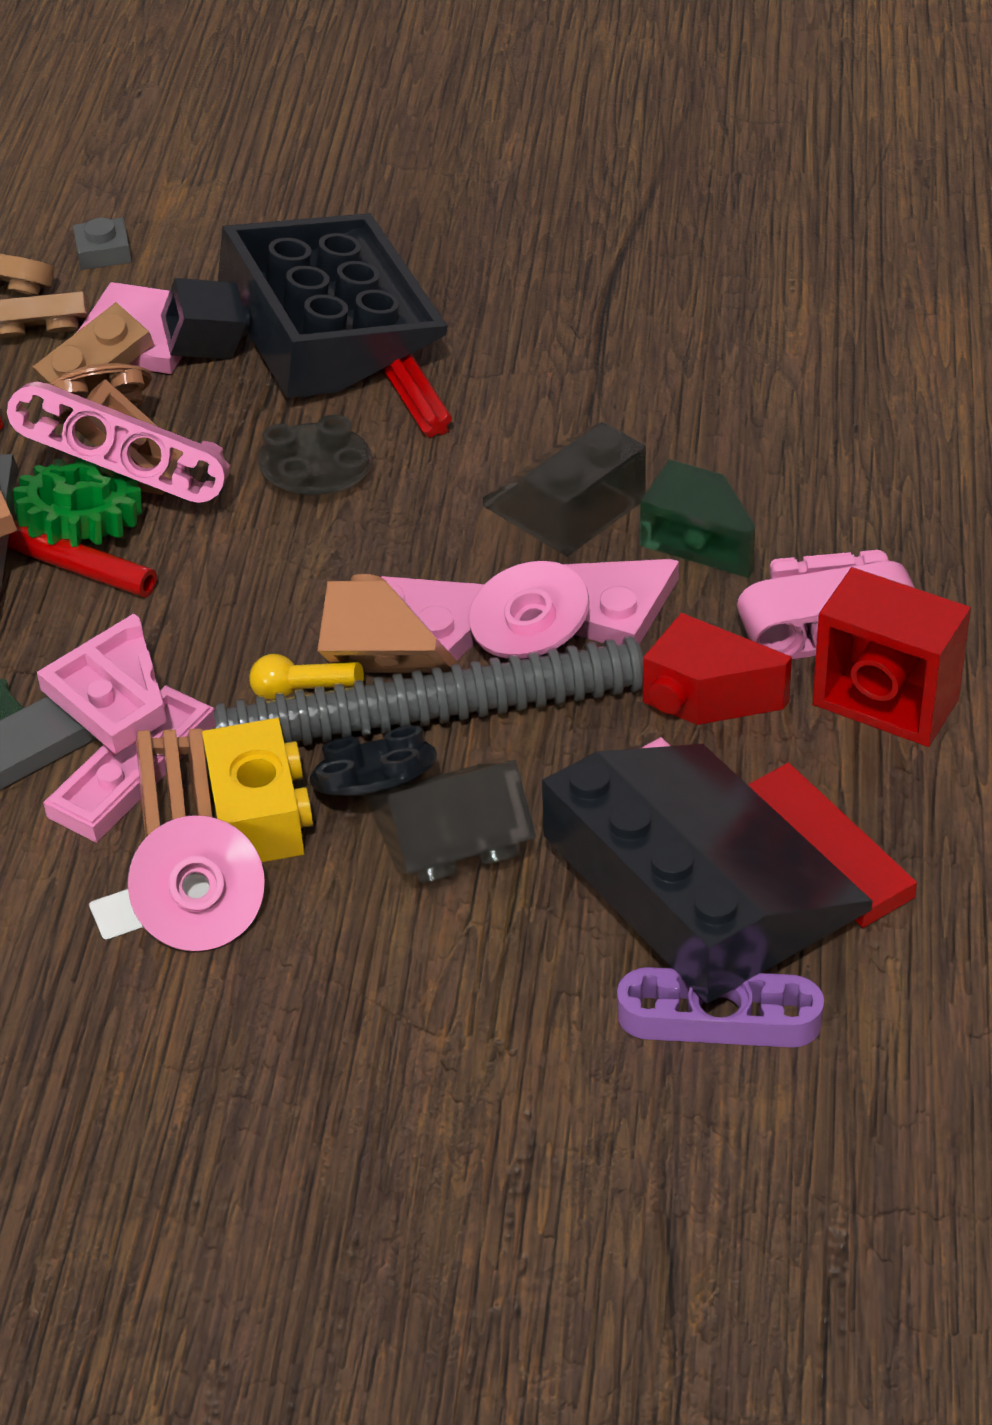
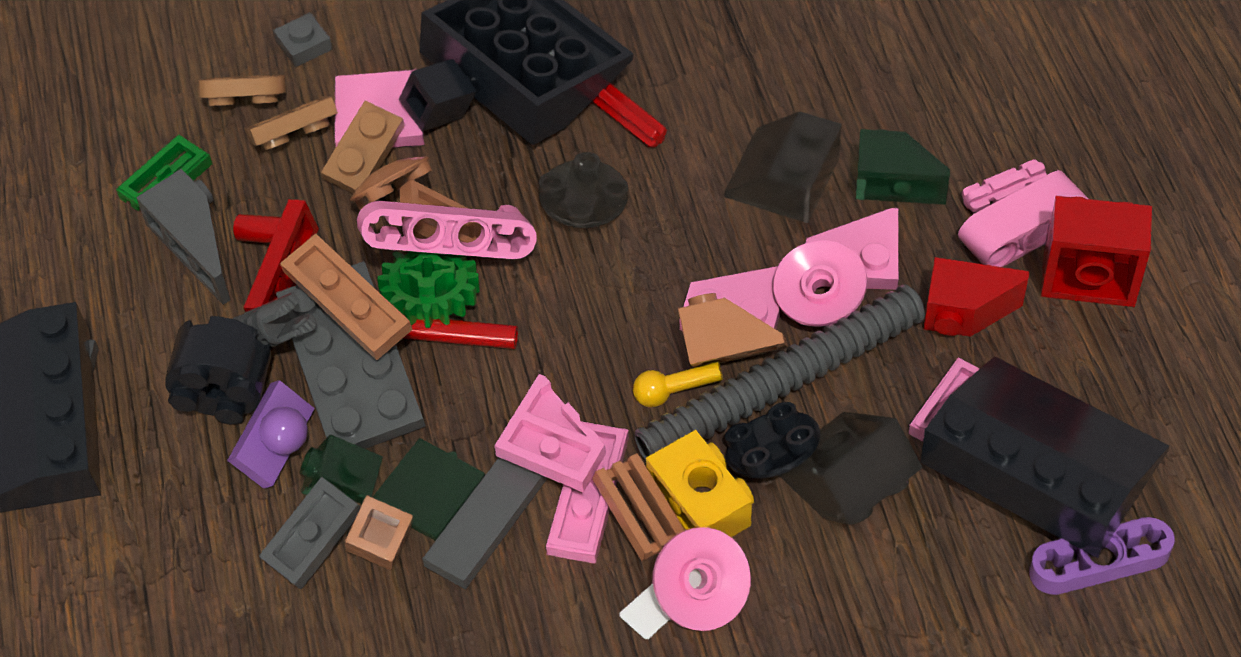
camera: 20 degrees left, 10 degrees up
(837, 840) = (1112, 399): red tile -> none

